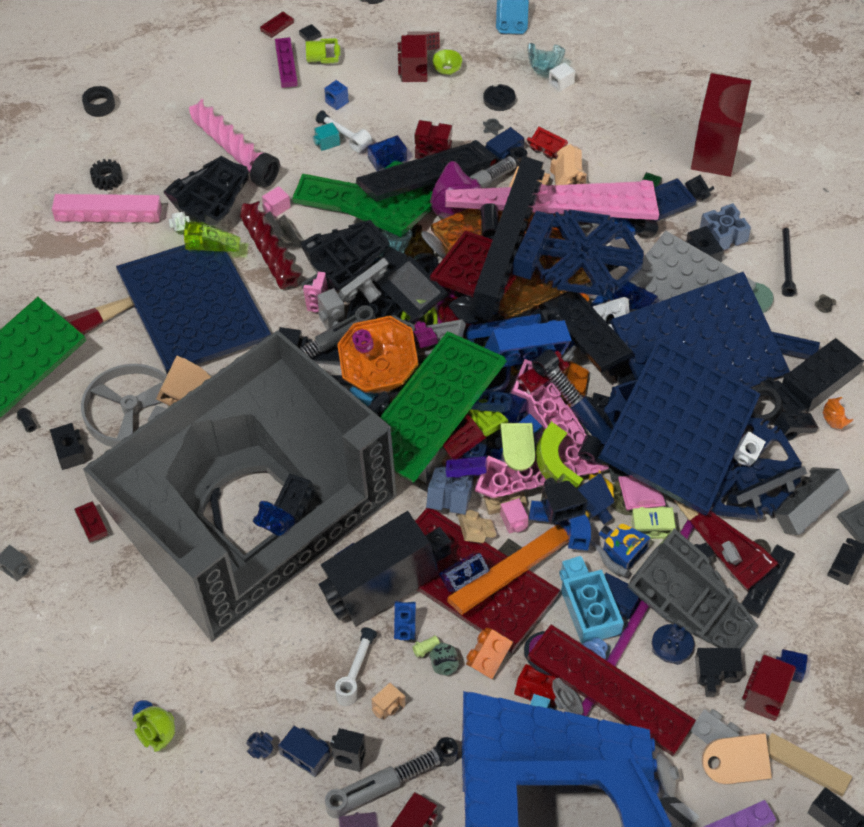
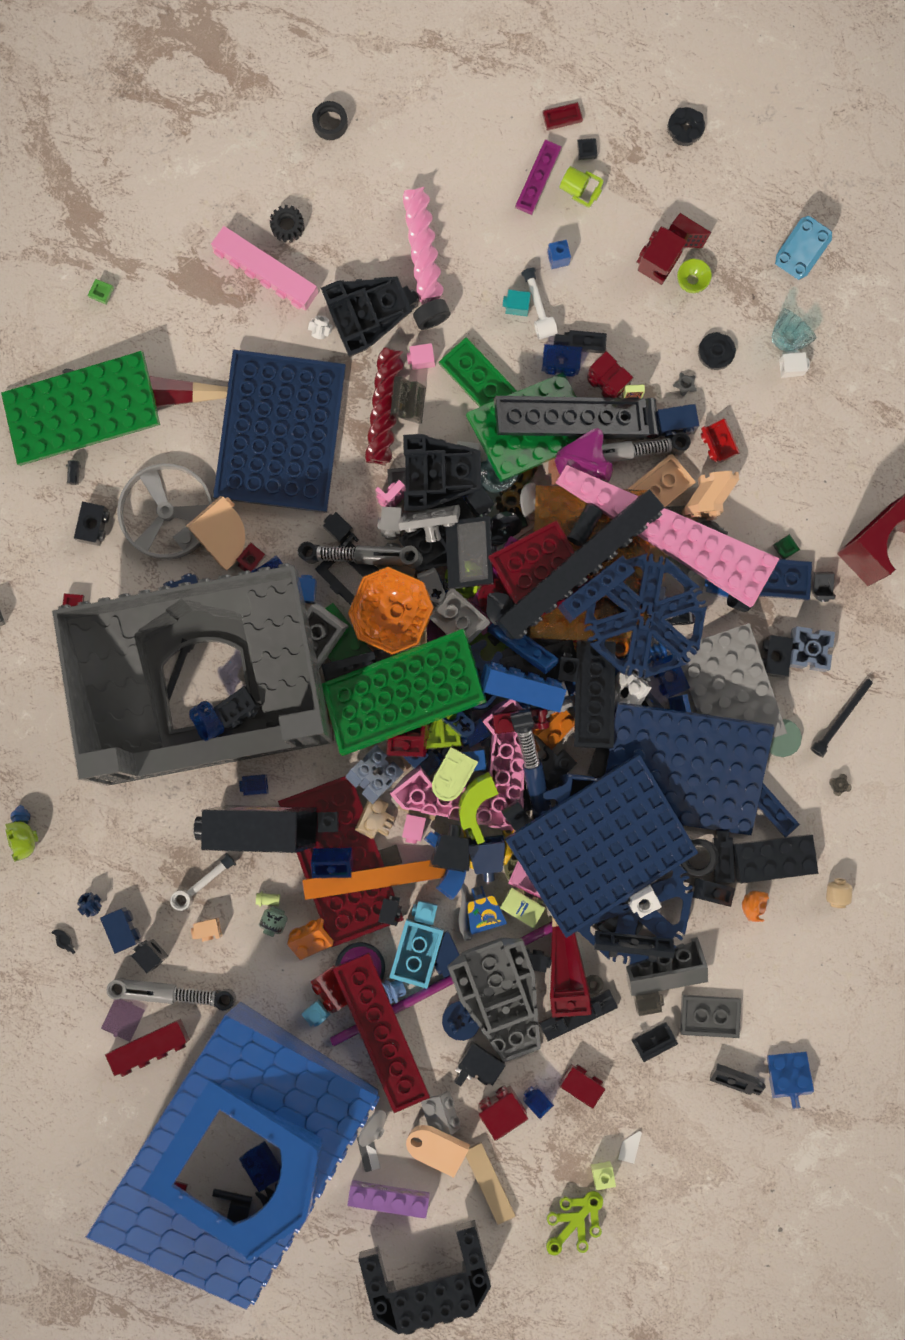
camera: 30 degrees right, 30 degrees up
(209, 238) = (331, 372): clear neon green slope -> none
(253, 797) = (63, 940): none -> black piece
(363, 336) = (380, 591): magenta wheel -> none
(404, 131) = (589, 341): none -> black hinge
(404, 620) = (261, 871): blue hips -> none
(423, 335) = (446, 611): magenta plate -> none
(459, 137) = (633, 391): none -> yellowish green tile
(466, 466) = (393, 771): dark purple plate -> none
(543, 584) = (390, 910): none -> black brick
(566, 697) = (340, 1021): light grey dish -> none
(730, 553) = (560, 982): light grey plate -> none
(815, 534) = (648, 1003): none -> clear smoke brick
(817, 630) = (582, 1086): none -> dark red brick

